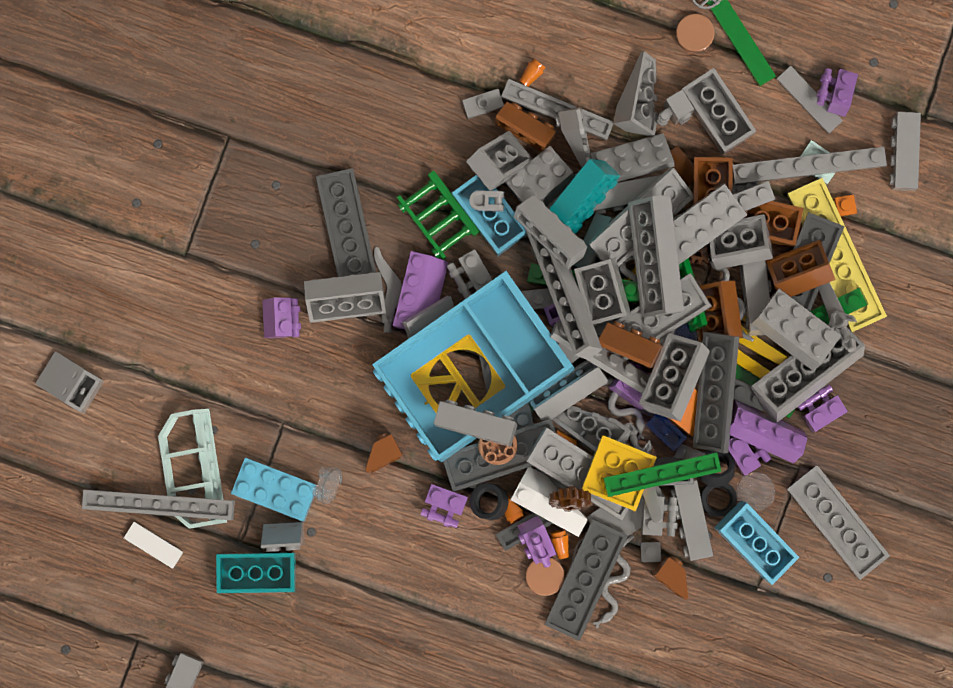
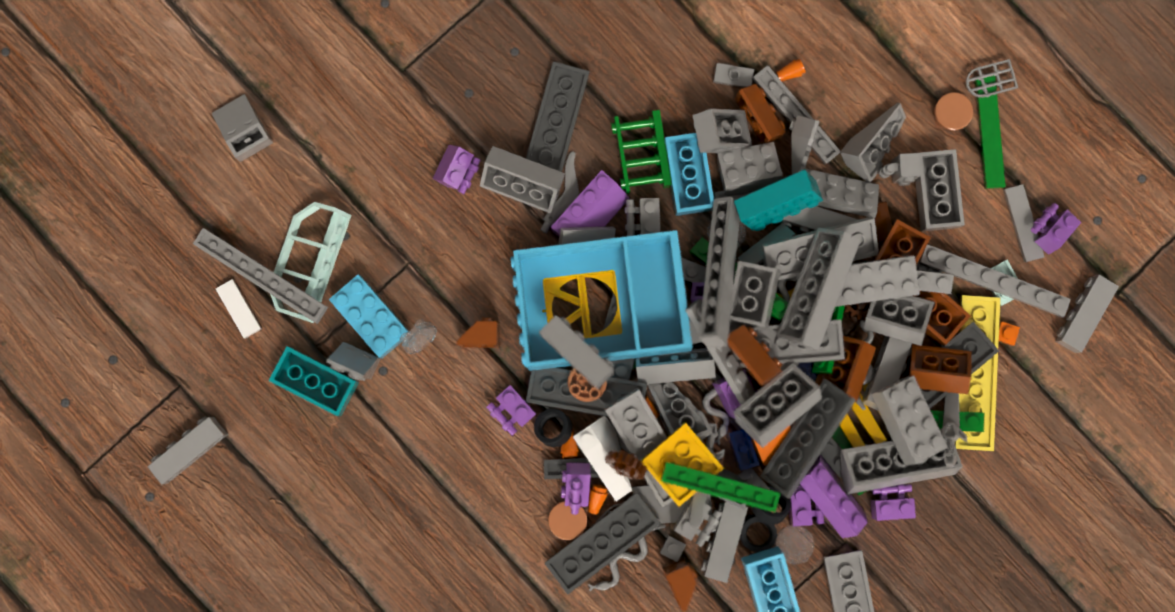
camera: 20 degrees right, 0 degrees up
(480, 199) = (685, 157): light grey plate -> none
(550, 231) = (735, 216): light grey brick -> none

